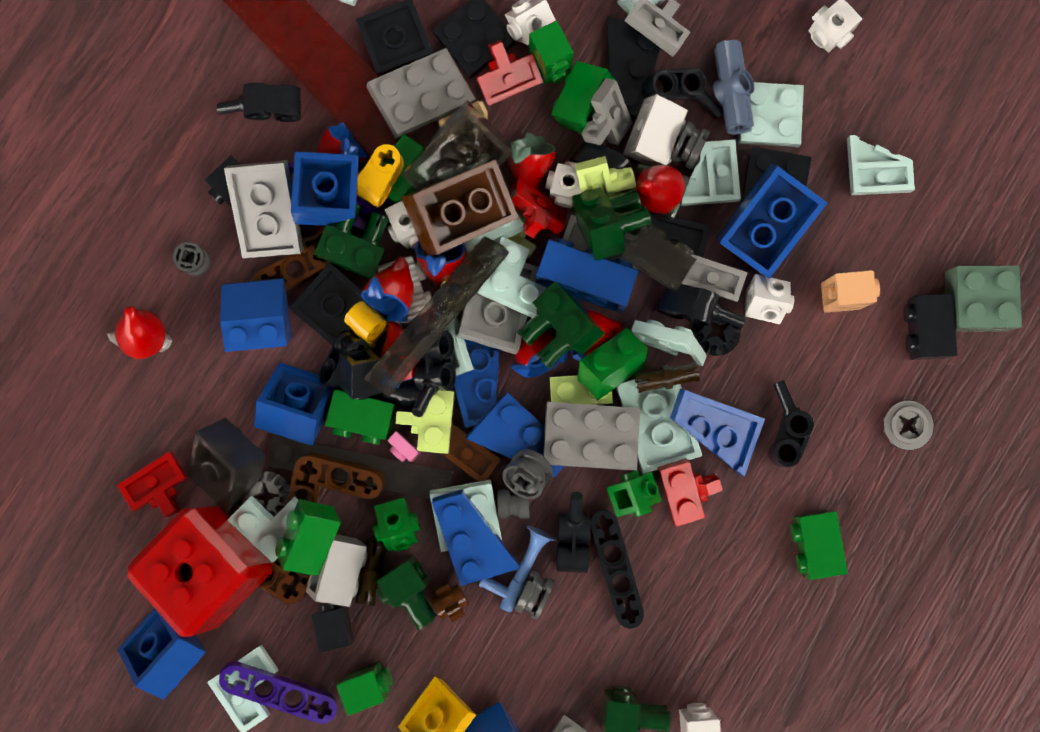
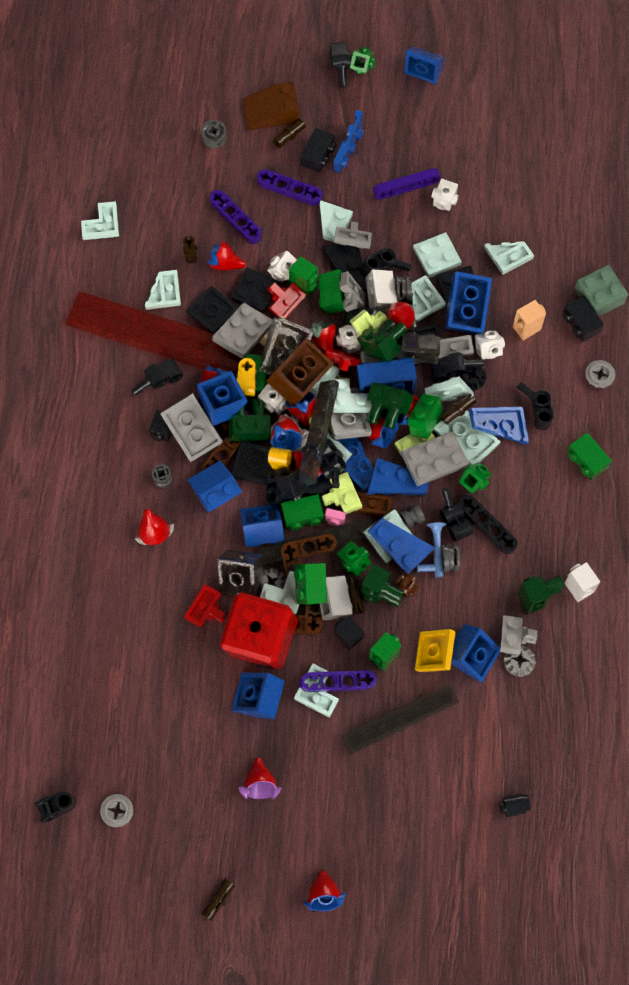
camera: 30 degrees left, 15 degrees down
(527, 474) = (411, 493): dark grey wheel -> none
(686, 491) = (502, 464): hinge -> none
(733, 87) = (410, 249): sand blue piece -> none

